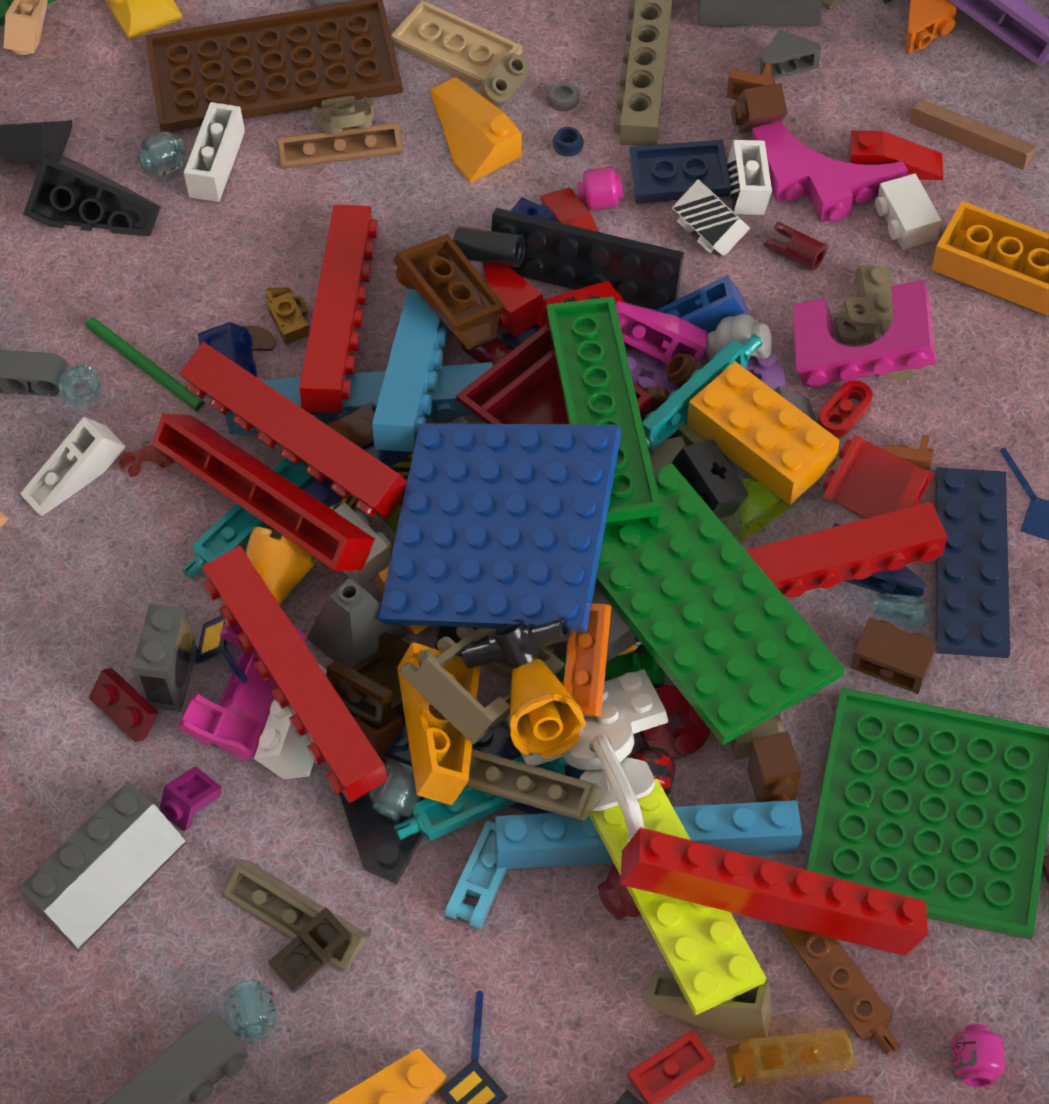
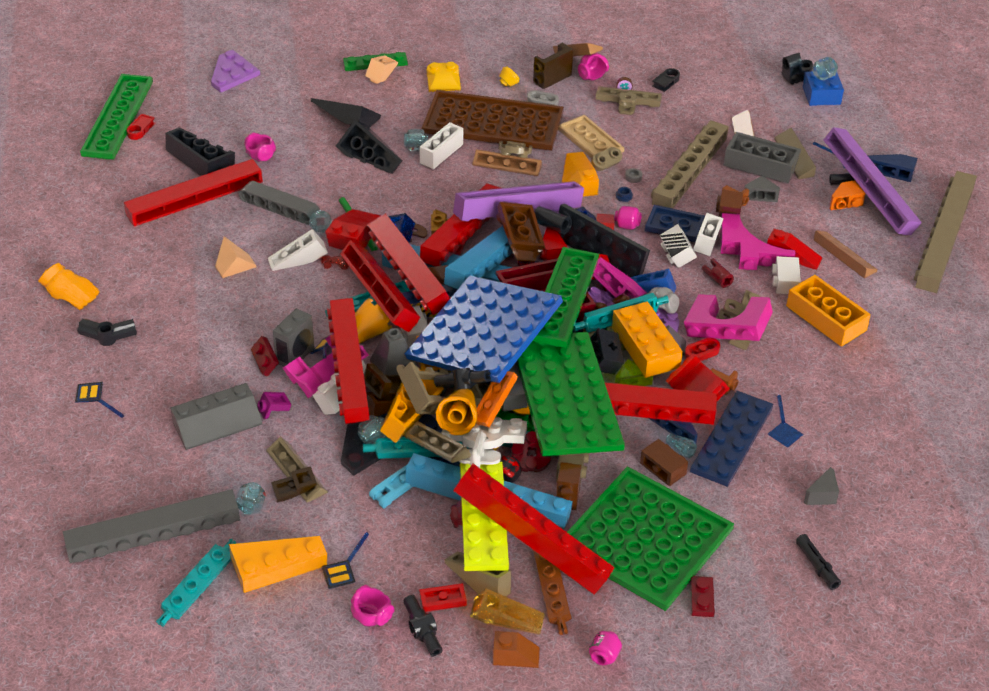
camera: 20 degrees right, 15 degrees down
(147, 380) = (349, 227): none -> red slope
(428, 215) = (485, 202): none -> medium lavender brick

